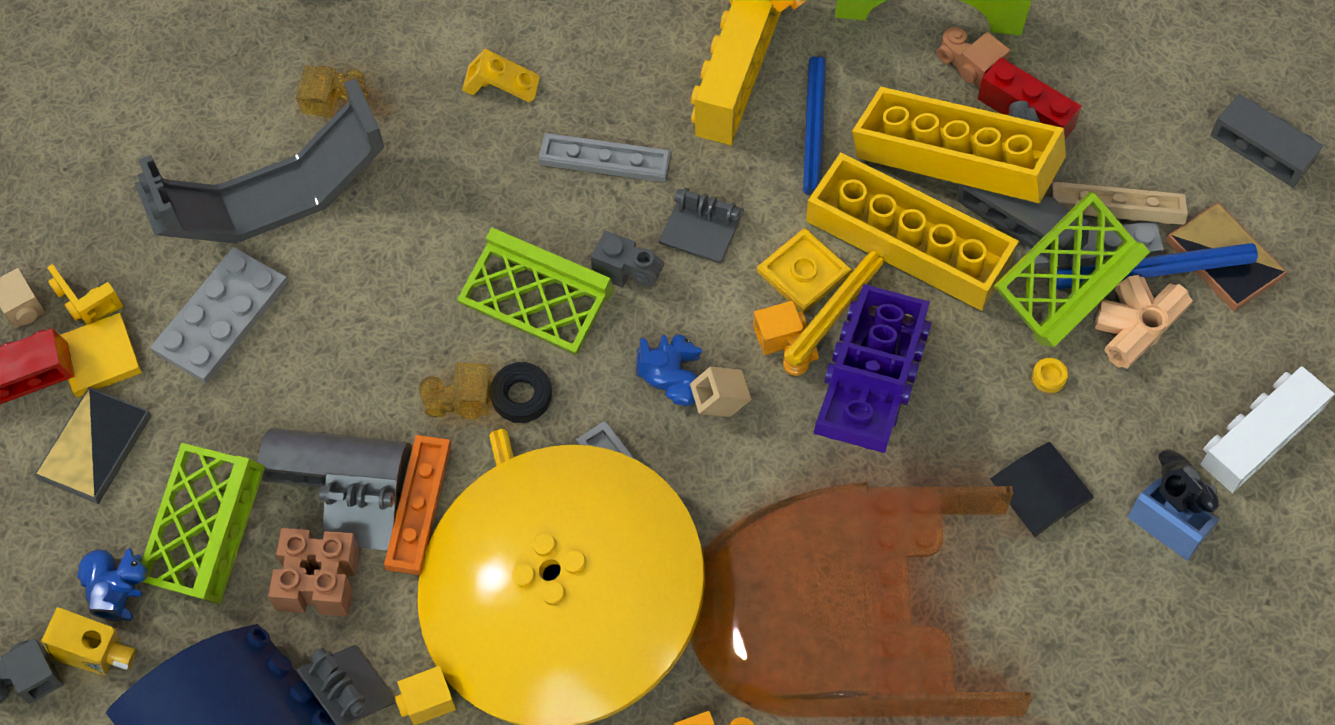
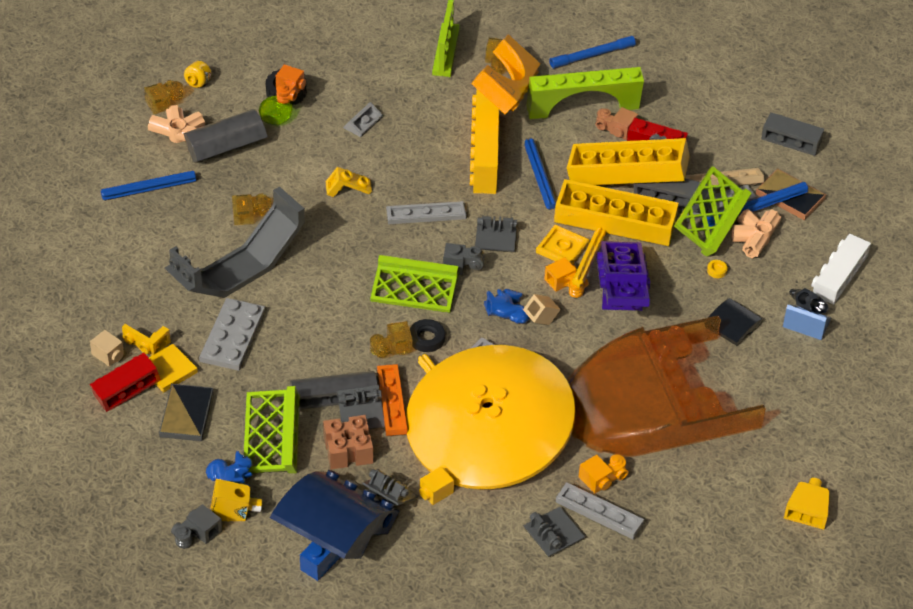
camera: 20 degrees left, 15 degrees down
(197, 14) = (148, 185): none -> blue axle

